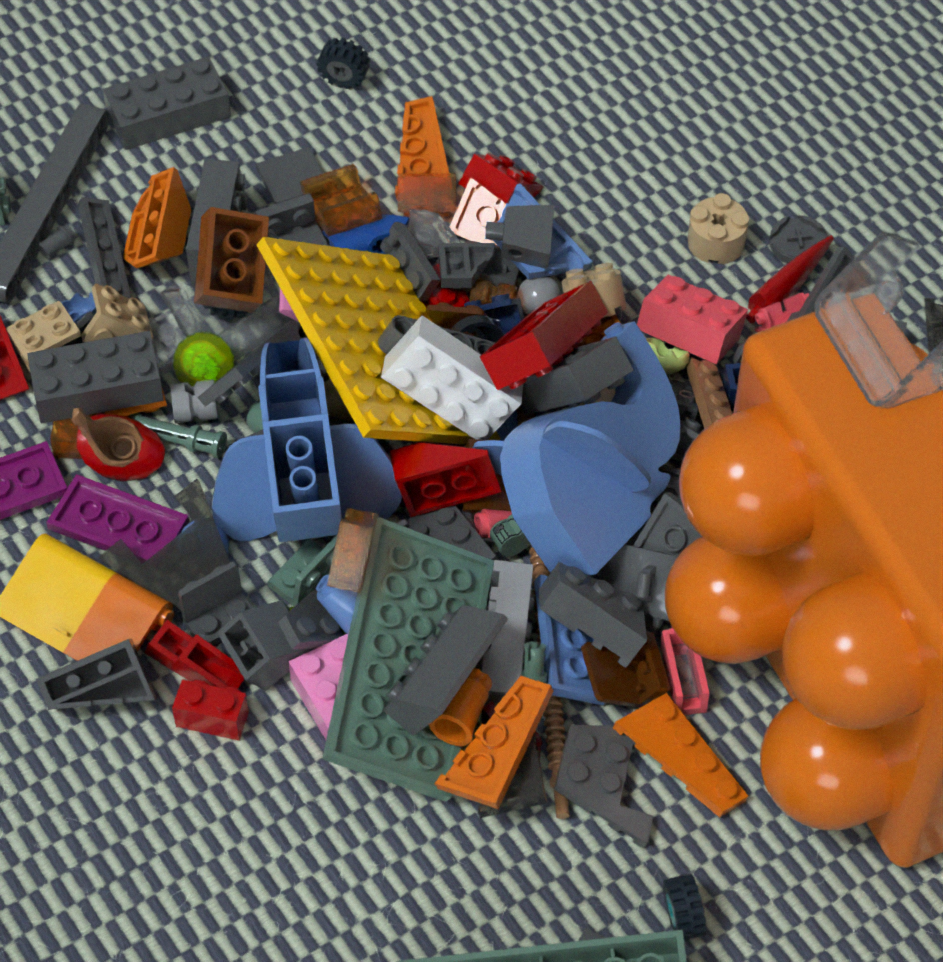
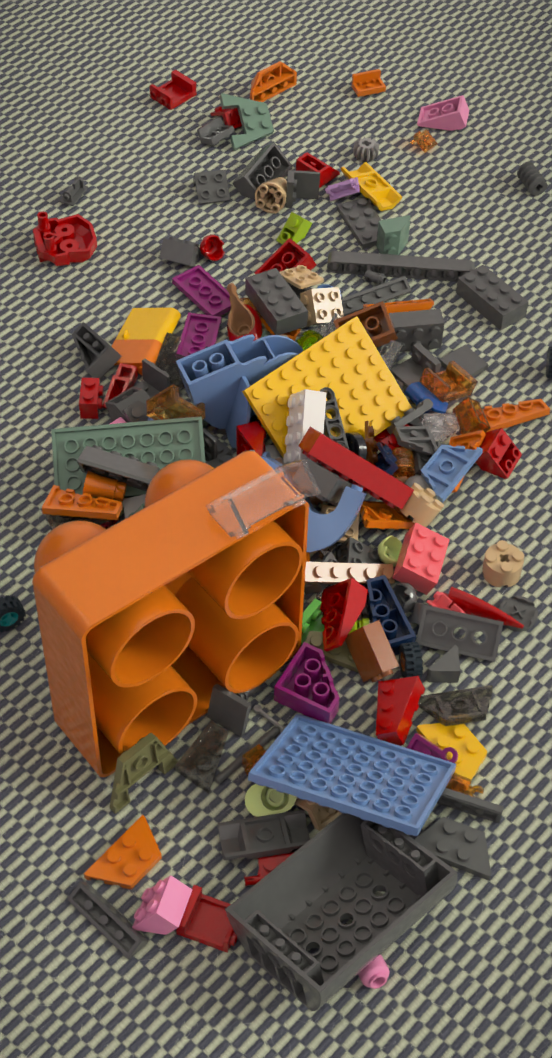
camera: 75 degrees right, 5 degrees down
(524, 234) = (442, 456): dark grey torso -> none

